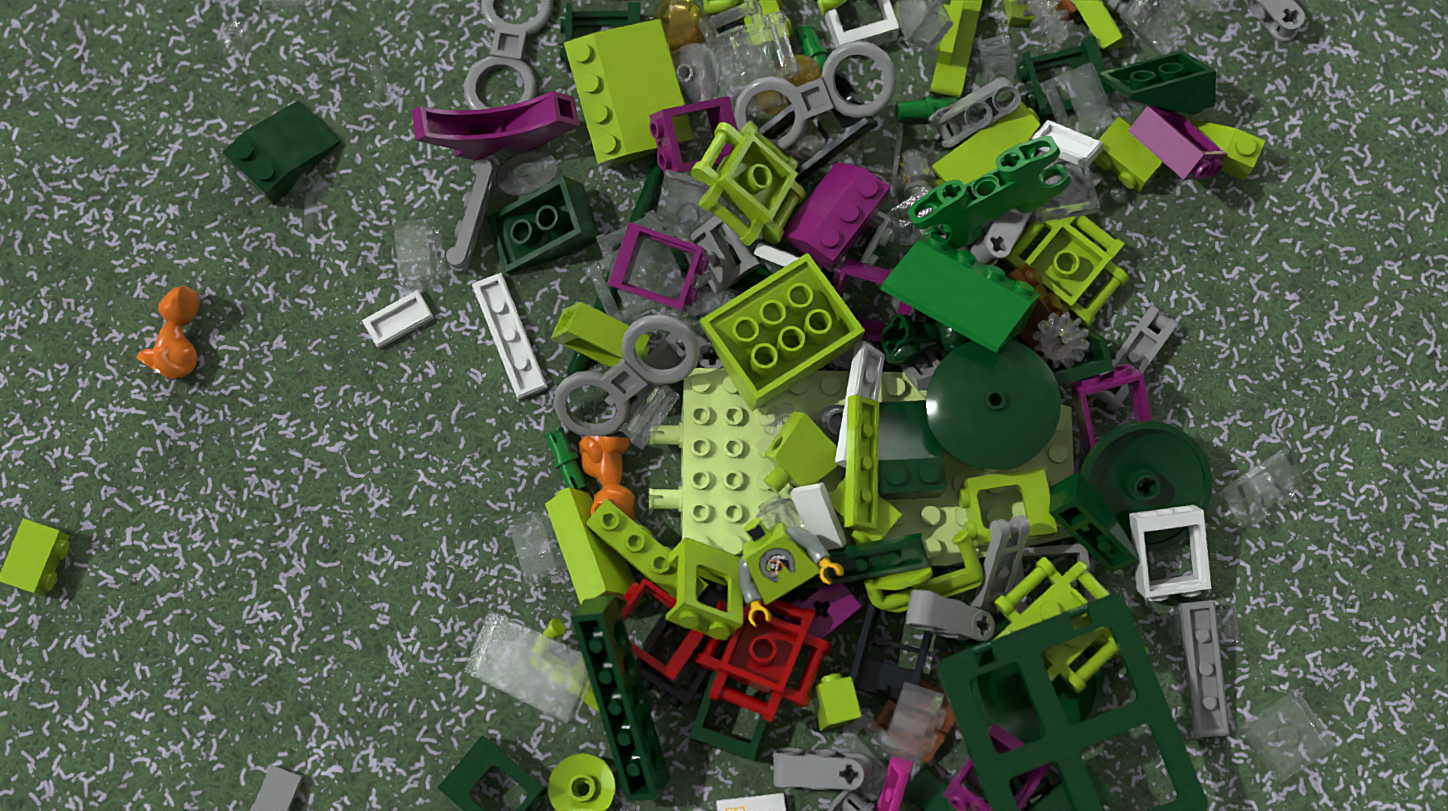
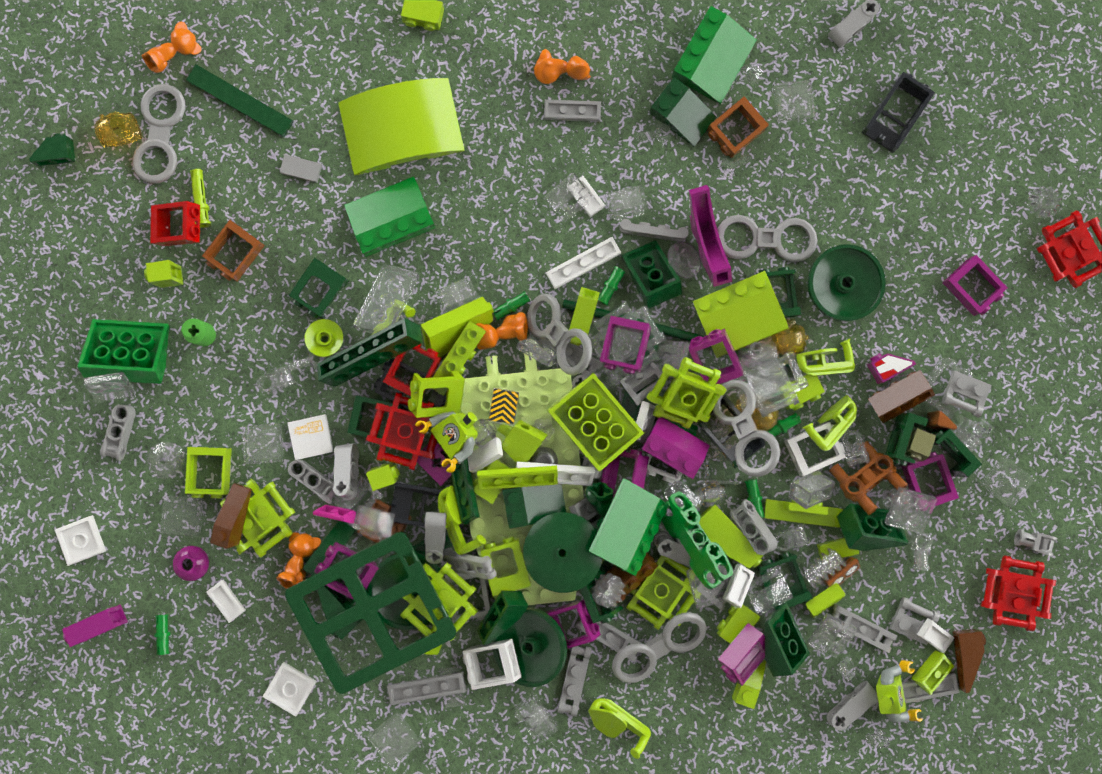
camera: 80 degrees right, 10 degrees up
(195, 91) = (714, 55): none -> slope
(224, 619) = (400, 124): none -> lime slope
(248, 326) = (572, 110): none -> light grey tile
(309, 42) = (750, 114): none -> dark orange window
(382, 652) = (389, 216): none -> green slope
(387, 351) = (565, 192): none -> clear plate
(549, 291) = (611, 285): none -> green pin
(739, 476) = (504, 406): none -> piece
(1157, 279) = (659, 647): none -> light grey bar
(1206, 423) = (574, 680): none -> light grey plate
(1274, 363) = (615, 720): none -> lime piece

